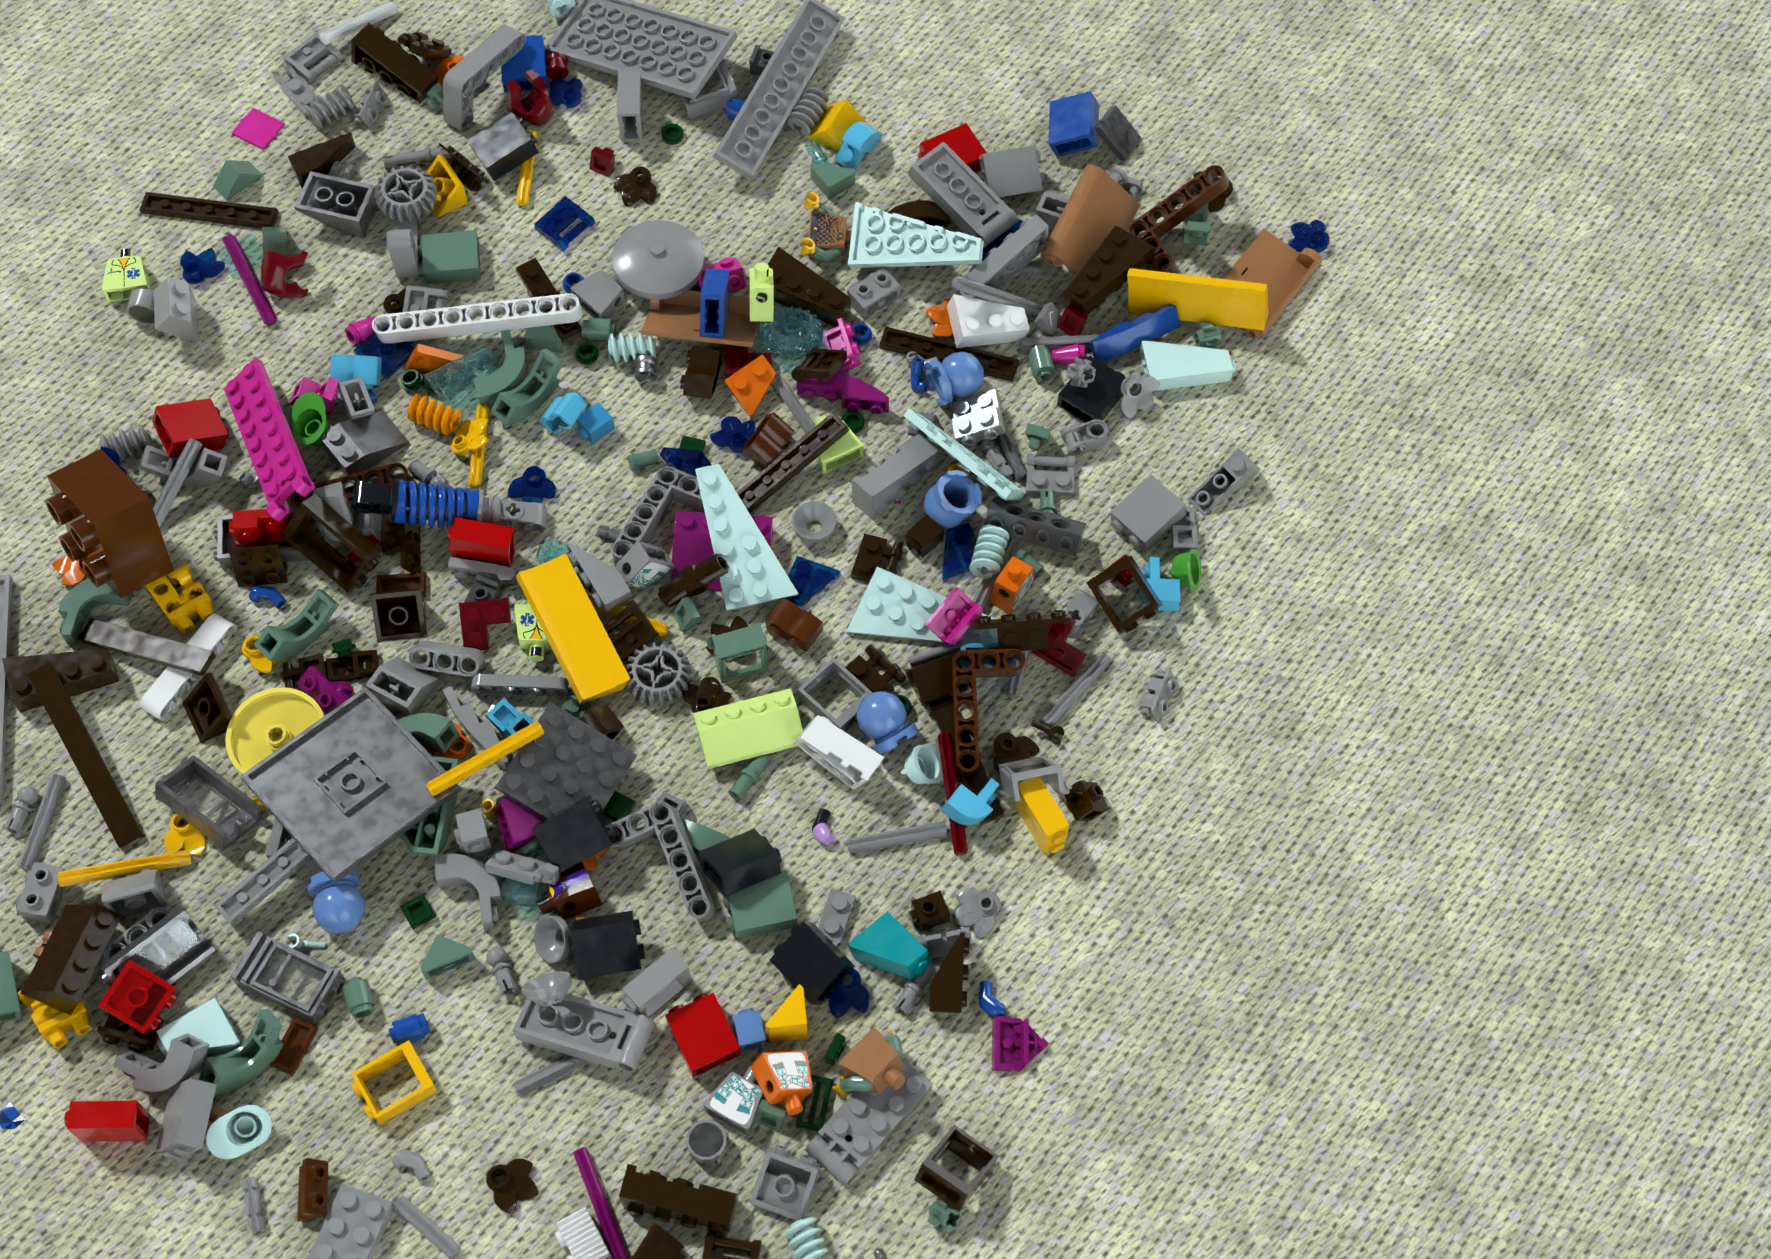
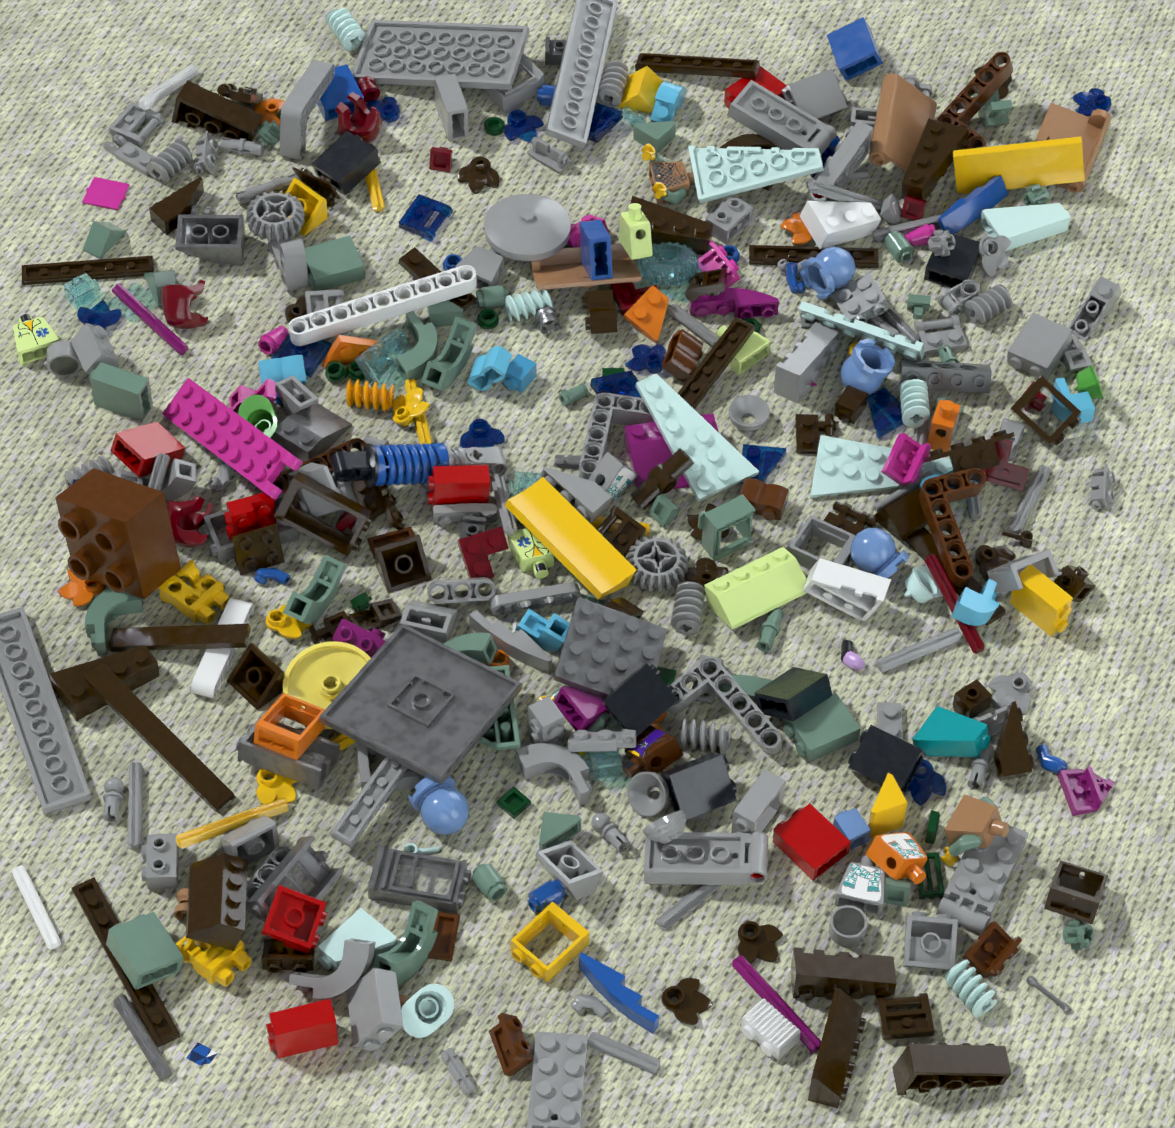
camera: 15 degrees left, 10 degrees down
(186, 357) = (121, 391): none -> sand green brick
(192, 234) = (82, 291): none -> clear light blue brick
(197, 796) = (283, 740): none -> orange window
(198, 517) = (187, 522): none -> dark red piece
(409, 104) = (242, 146): none -> light grey pin
(438, 1007) = (571, 868): none -> light grey slope
(439, 1151) = (612, 987): none -> blue slope
(485, 758) = (539, 653): yellow axle -> none
(525, 562) = (501, 496): none -> light grey axle
(611, 1139) = (760, 945): none -> dark brown plate
(635, 887) = (705, 736): none -> light grey piece
(669, 732) = (688, 608): none -> light grey piece
(699, 143) = (522, 126): none -> clear blue plate
(715, 179) = (549, 155): none -> light grey hinge
(782, 152) = (603, 121): none -> clear blue wing
(846, 1210) = (991, 950): none -> reddish brown bracket
(903, 109) = (699, 65): none -> dark brown tile
(1111, 450) = (988, 304): none -> light grey piece
(1118, 133) = (896, 49): flat silver plate -> none

